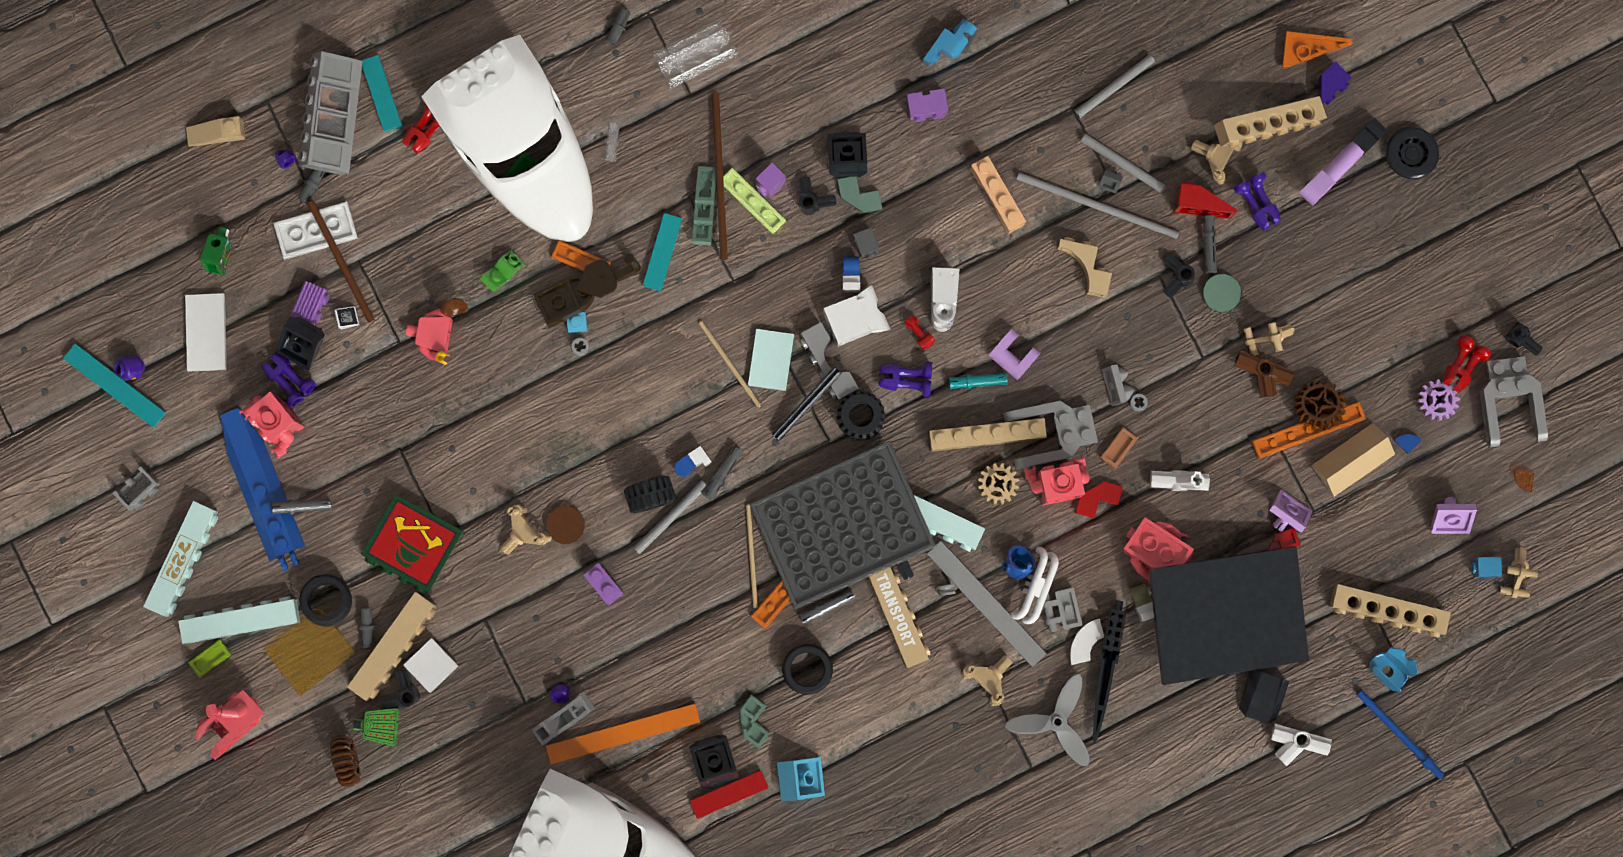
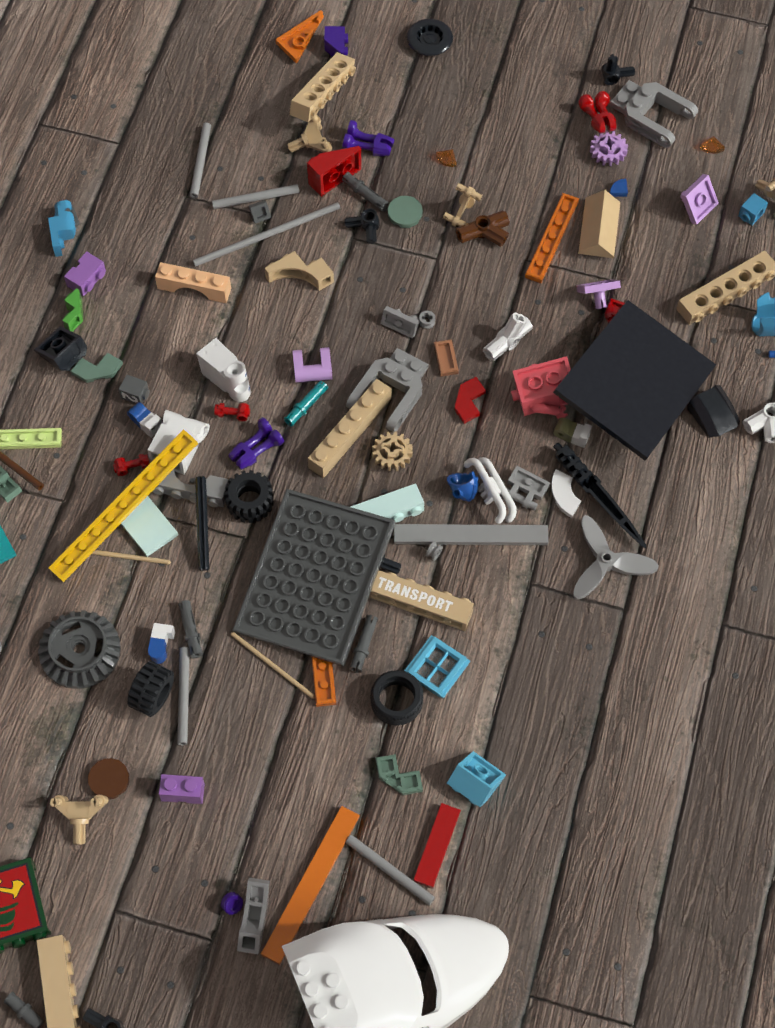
camera: 45 degrees left, 20 degrees down
(431, 665) = (106, 986): white tile -> none
(626, 431) = (87, 668): none -> dark grey gear
(682, 778) = (390, 870): none -> light grey piece
(713, 761) = (401, 831): black slope -> none
(766, 334) = (123, 505): none -> yellow plate
(770, 181) = (22, 409): medium lavender brick -> none
(798, 296) = (121, 466): none -> red bar
(807, 195) = (66, 400): black axle -> none
(859, 674) = (437, 666): none -> medium azure piece
(894, 124) = (74, 305): none -> bright green slope
(990, 678) = (529, 577): tan axle -> none
(1059, 483) = (432, 405): coral torso -> none
(1305, 278) = (446, 158): none -> clear orange tile
(1337, 410) = (542, 213): reddish brown gear -> none
(1343, 161) = (393, 69): lavender piece -> none

